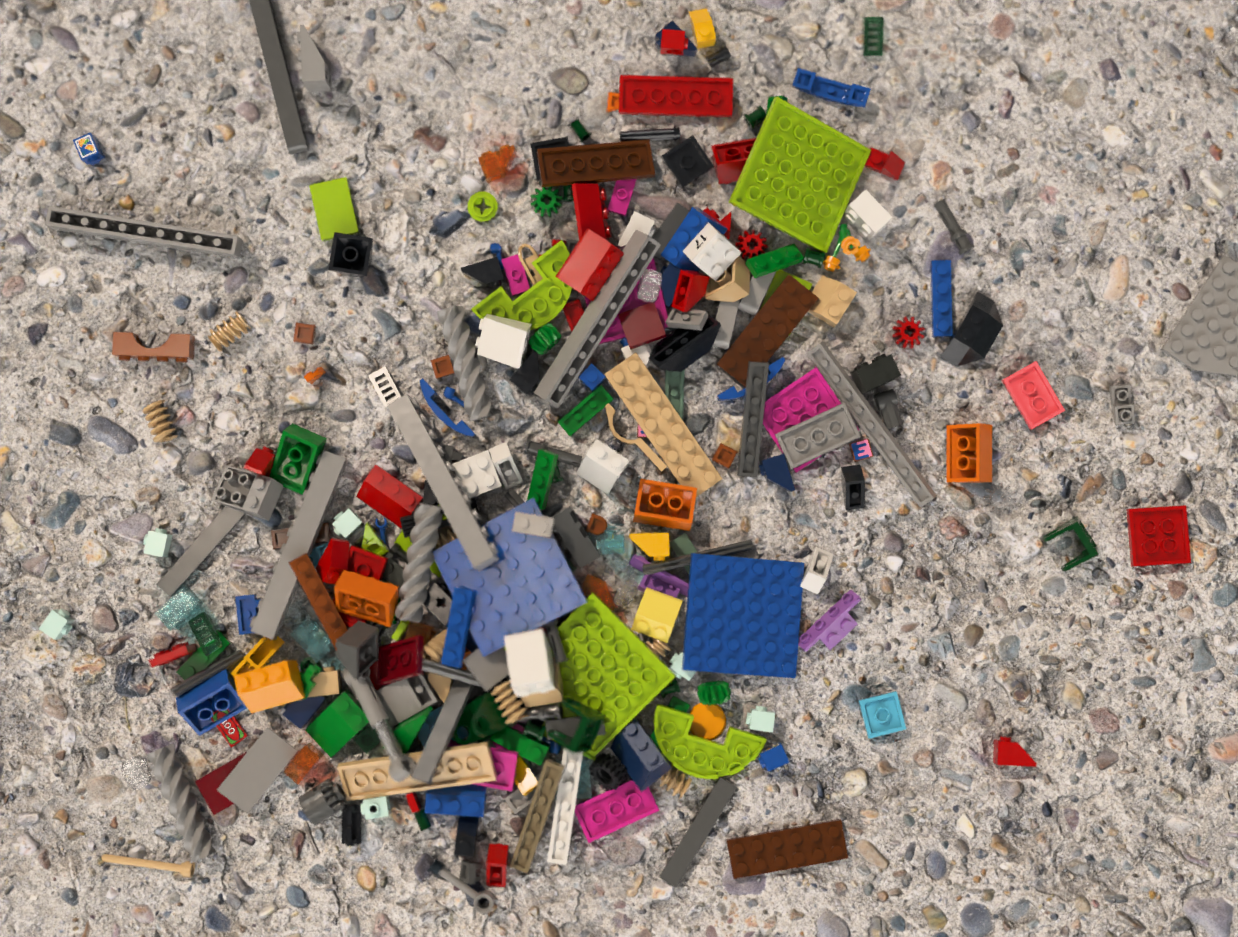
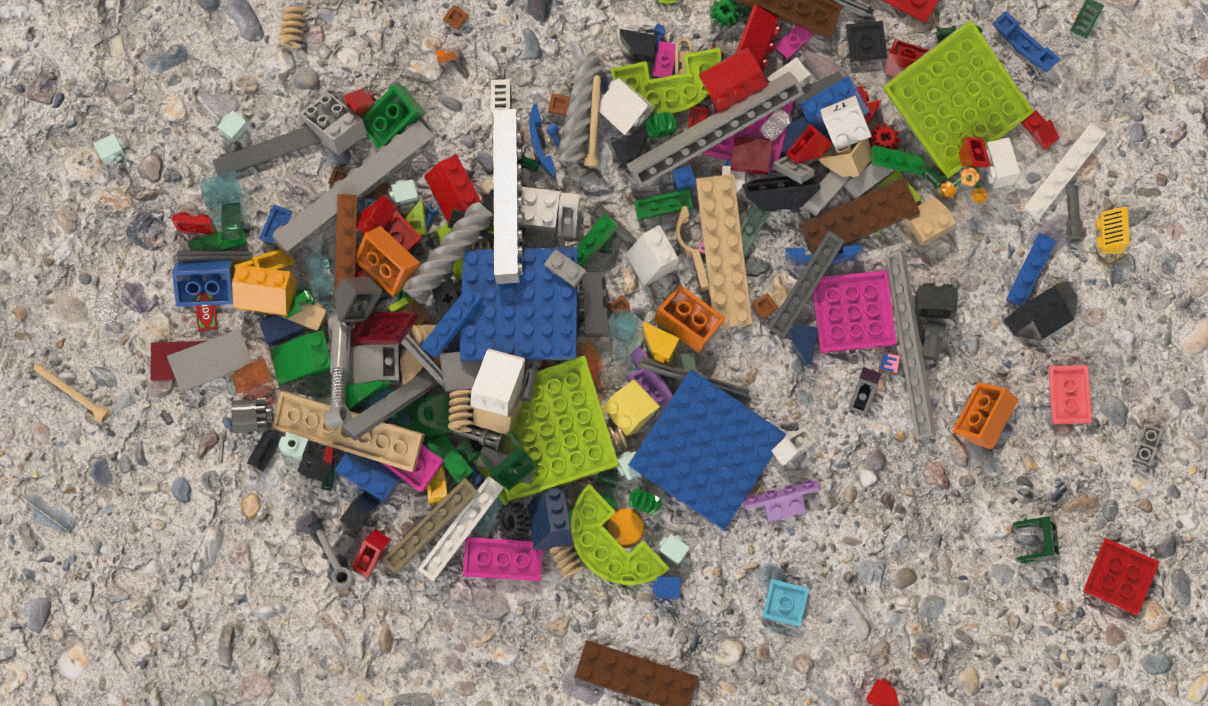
camera: 30 degrees right, 10 degrees down
(181, 803) = (128, 355): light grey piece -> none
(405, 819) = (314, 467): none -> black slope
(445, 436) = (529, 164): none -> dark green piece
(499, 401) = (591, 158): none -> tan piece
(697, 832) = (564, 619): dark grey tile -> none
(817, 435) = (856, 329): light grey tile -> none
(841, 220) = (974, 153): none -> red slope
(910, 326) = (978, 284): red gear -> none
(925, 190) = (1064, 171): none -> white plate
(997, 225) = (1112, 231): none -> yellow slope

